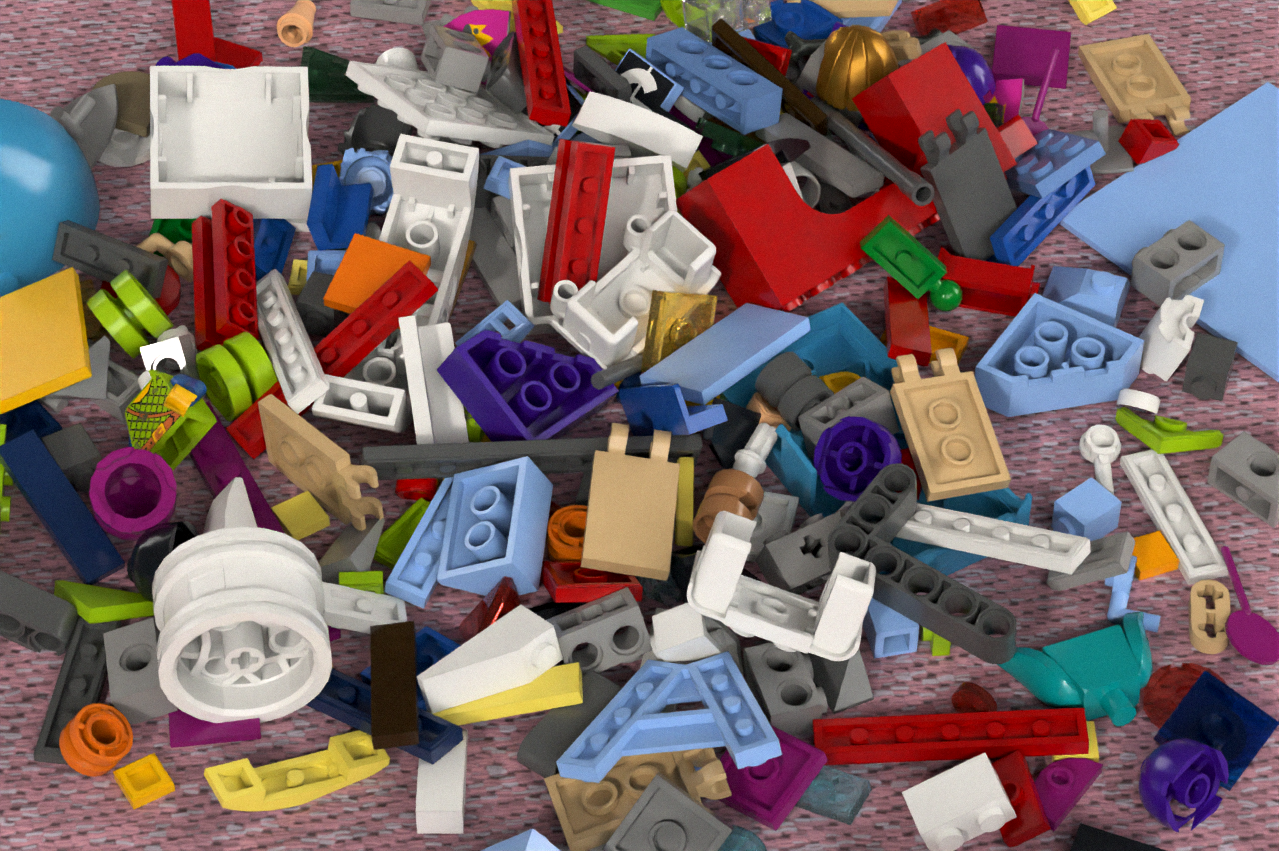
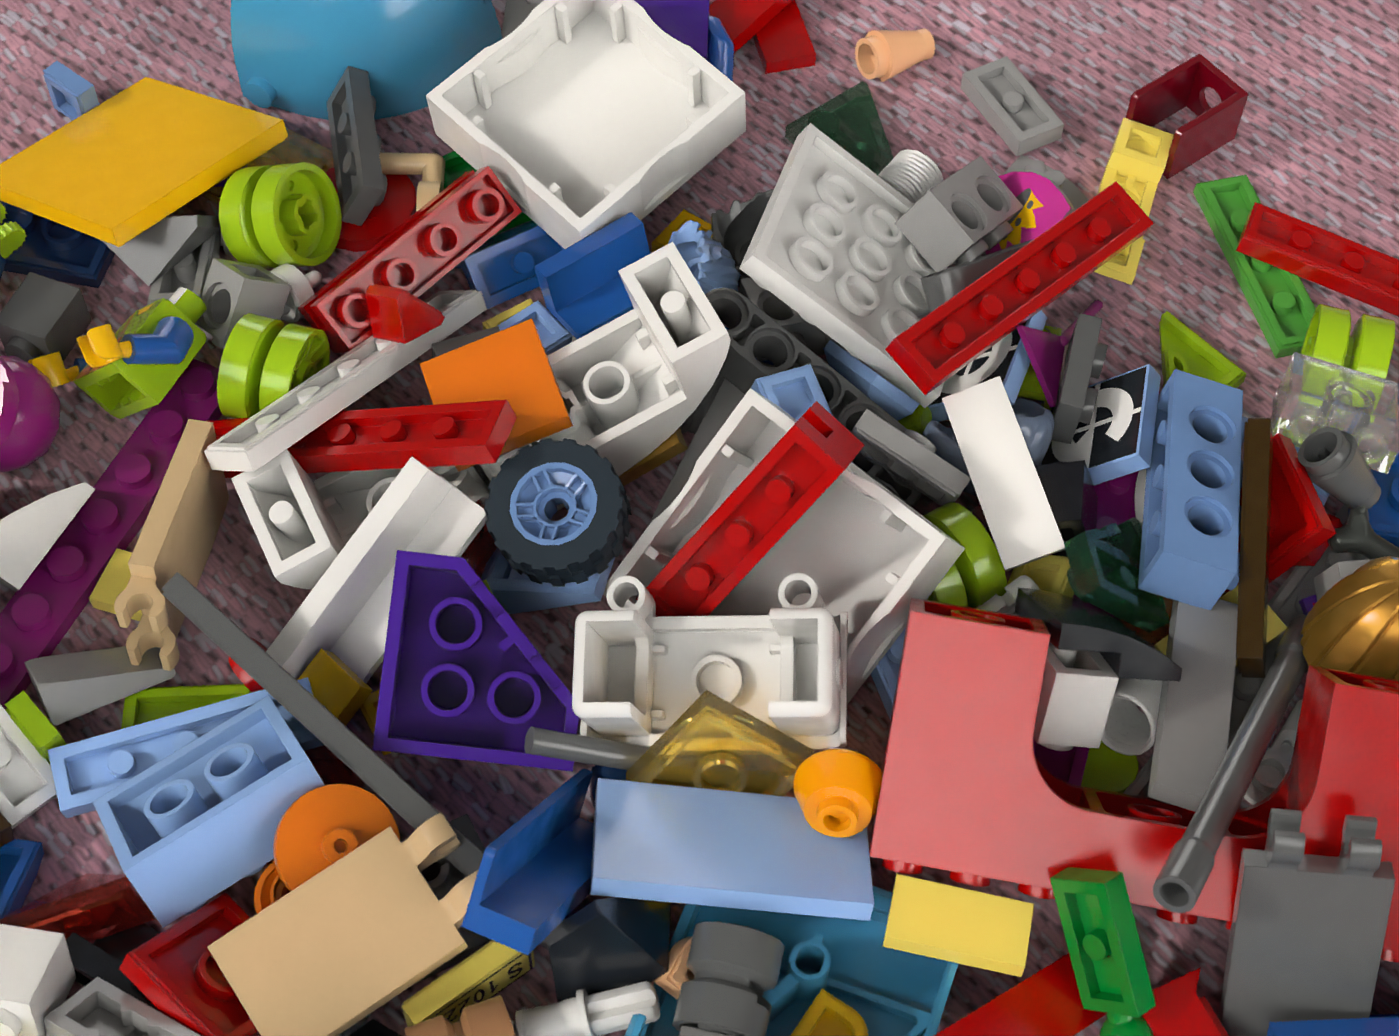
camera: 50 degrees right, 10 degrees up
(271, 295) = (399, 314): none -> red slope
(468, 280) = (527, 498): none -> black wheel
(565, 487) = (326, 828): none -> orange piece
(740, 294) = (838, 791): none -> light orange cone
(757, 25) = (1339, 467): none -> dark grey cone
(843, 303) = (959, 925): none -> light yellow tile

